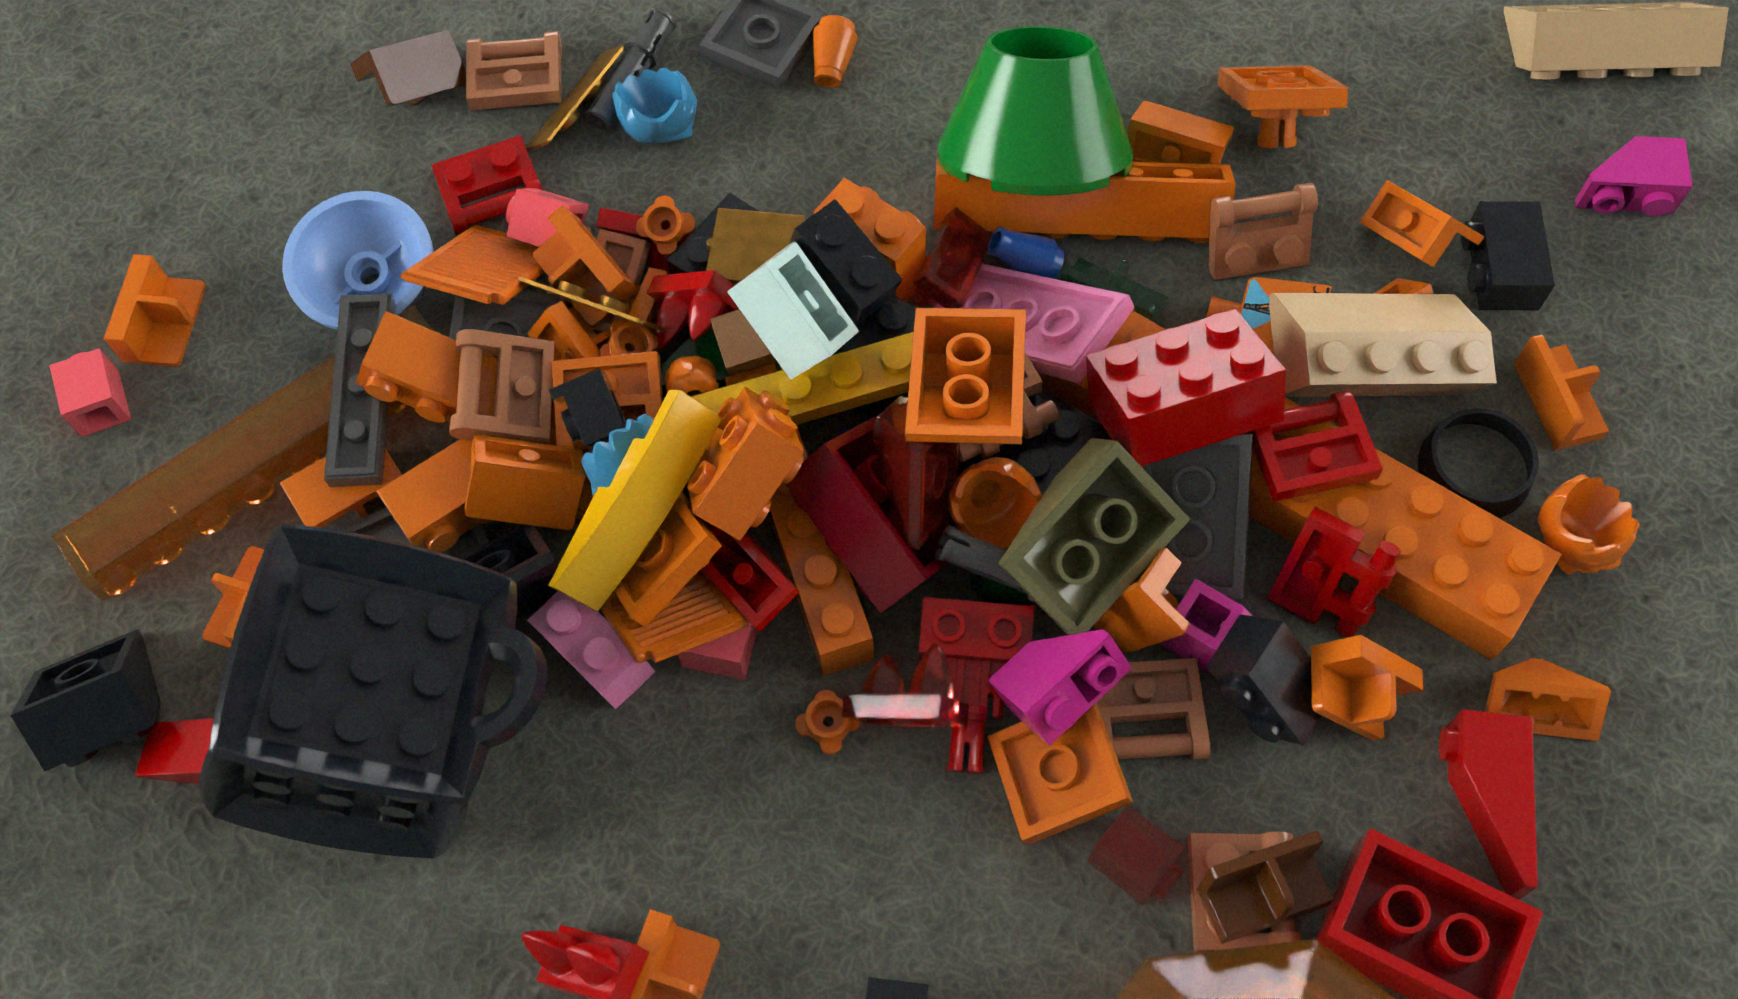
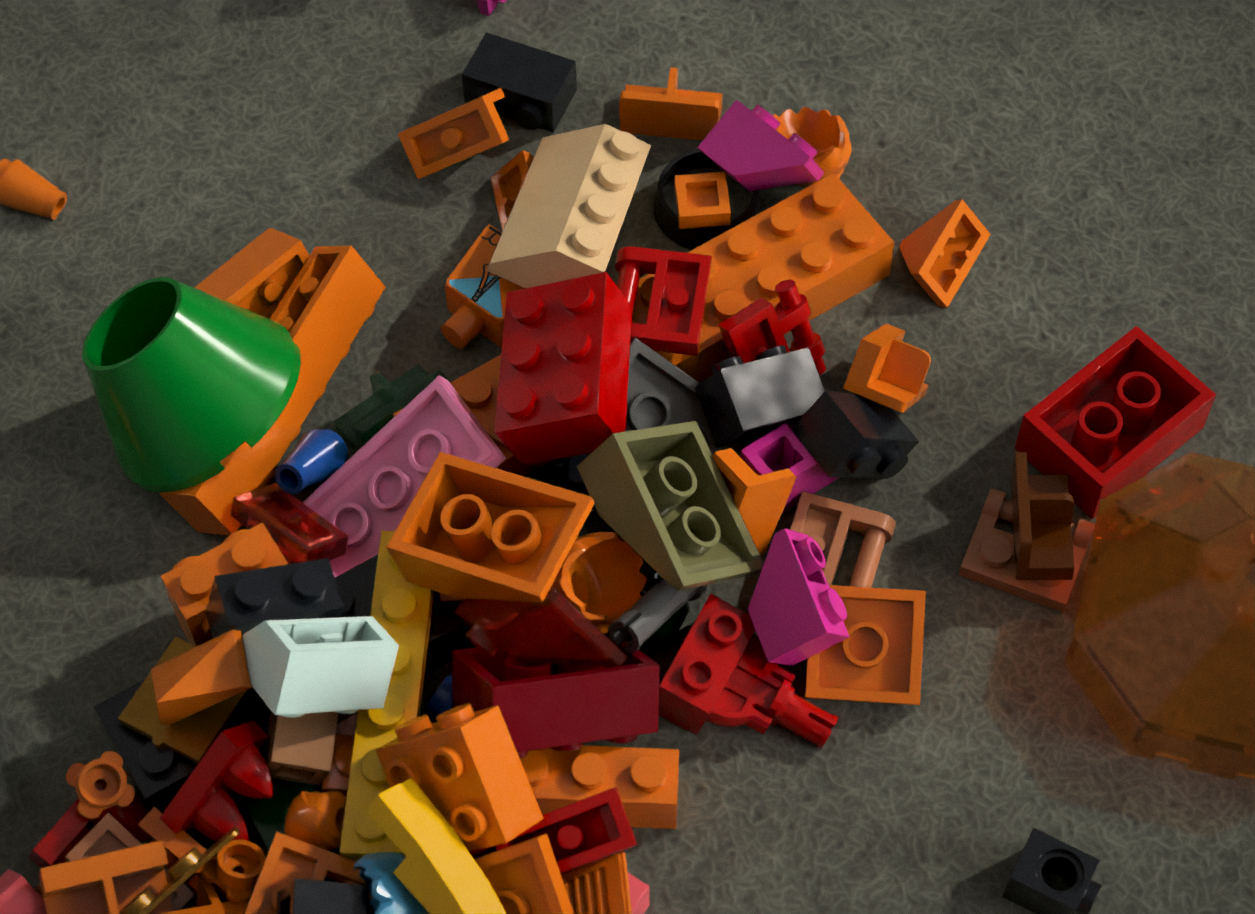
camera: 70 degrees left, 5 degrees down
(751, 232) = (201, 677): none -> orange slope
(811, 723) = (730, 821): orange plate -> none
(926, 705) = (757, 719): clear red tile -> none
(1137, 856) = (968, 616): clear red brick -> none
(1261, 243) = (399, 255): nougat plate -> none
(1263, 574) = (758, 395): none -> brick
(1278, 93) = (259, 171): orange plate -> none
(1459, 449) = (702, 200): none -> orange plate
(1494, 783) = (1010, 320): red slope -> none
(1538, 469) = (755, 153): none -> dark pink slope

